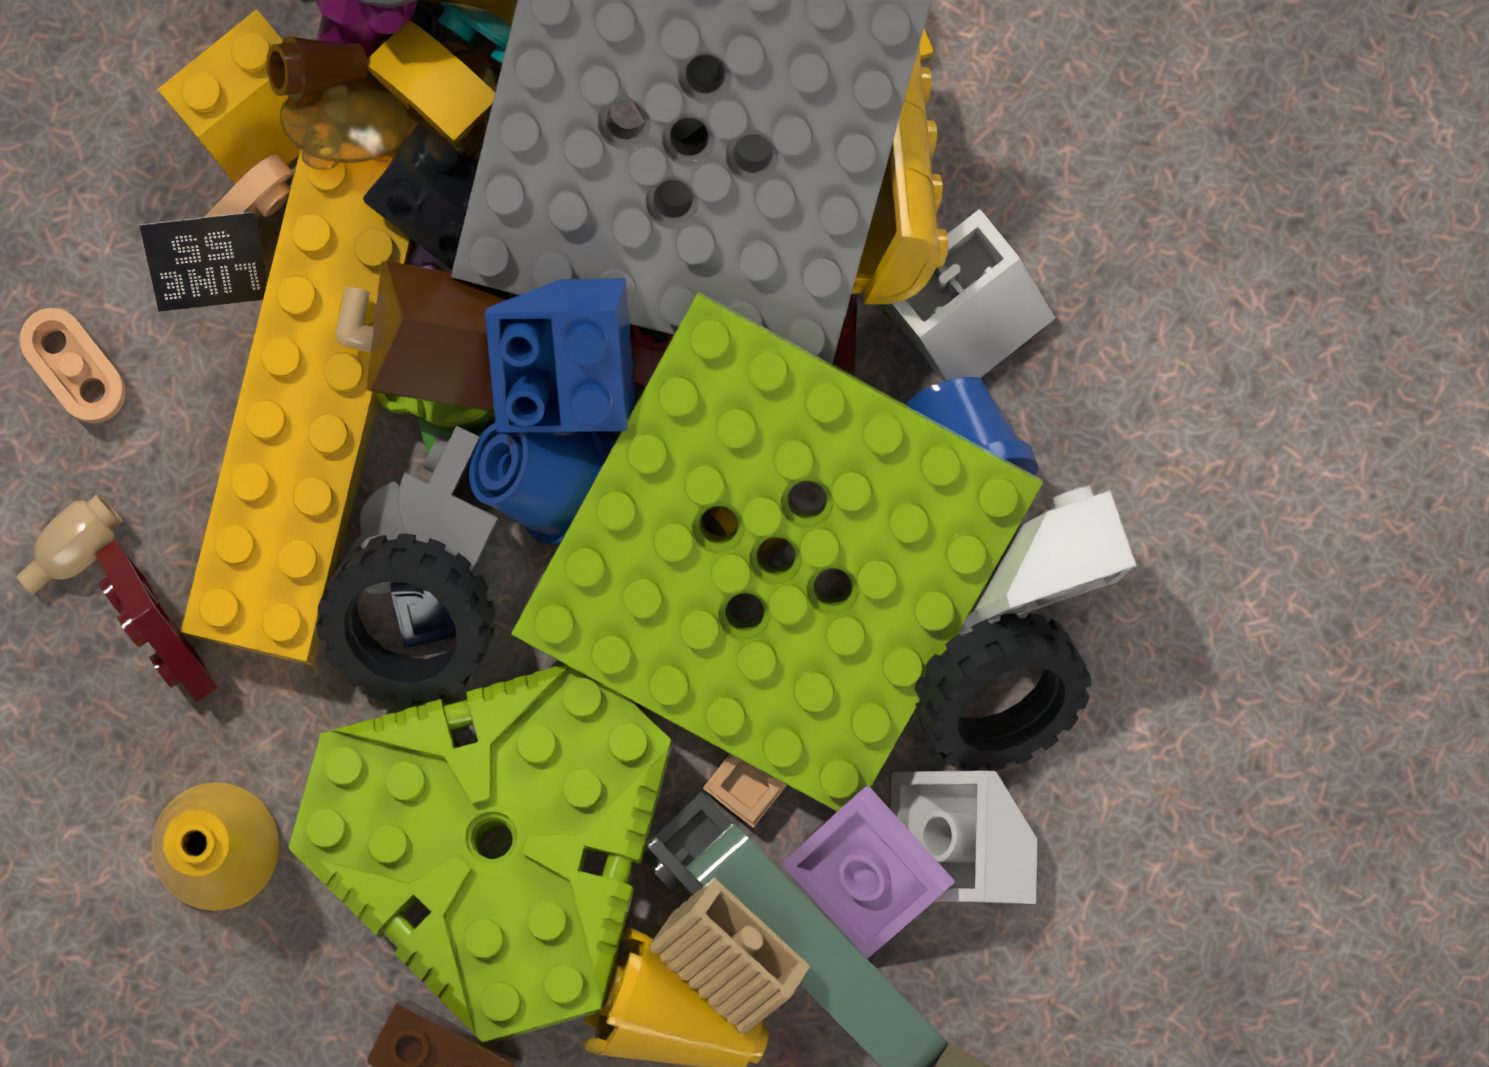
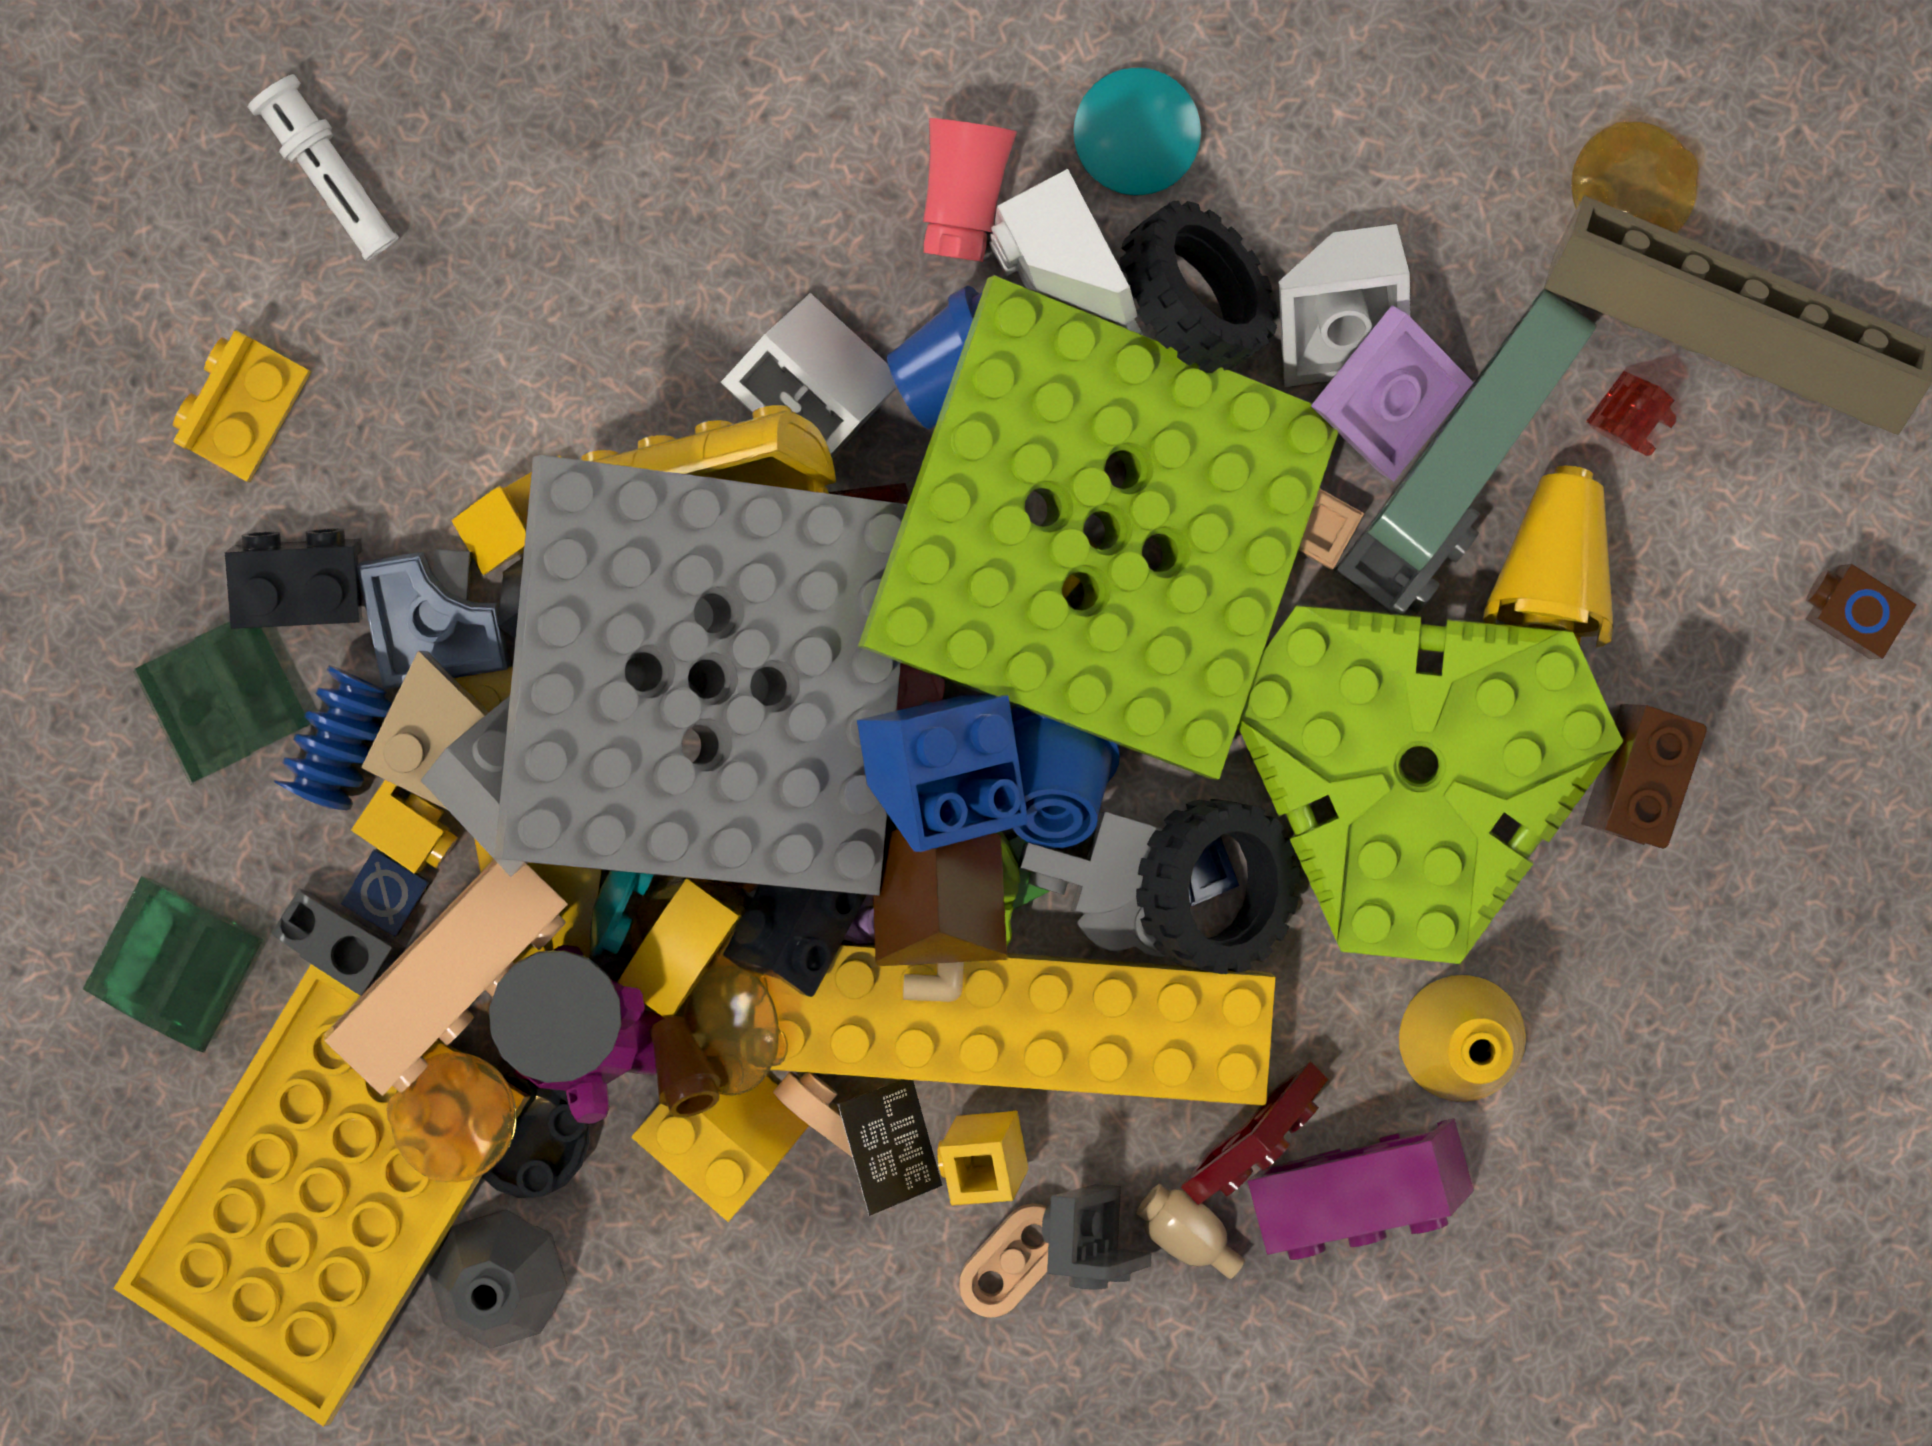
camera: 100 degrees left, 5 degrees up
(78, 719) = (1362, 1192): none -> magenta wedge
(80, 436) = (1084, 1238): none -> dark grey bracket
(177, 350) = (983, 1158): none -> yellow brick
(729, 956) = (1502, 513): tan brick -> none
(1143, 481) = (963, 186): none -> coral plant
(1166, 664) = (1137, 131): none -> teal dish

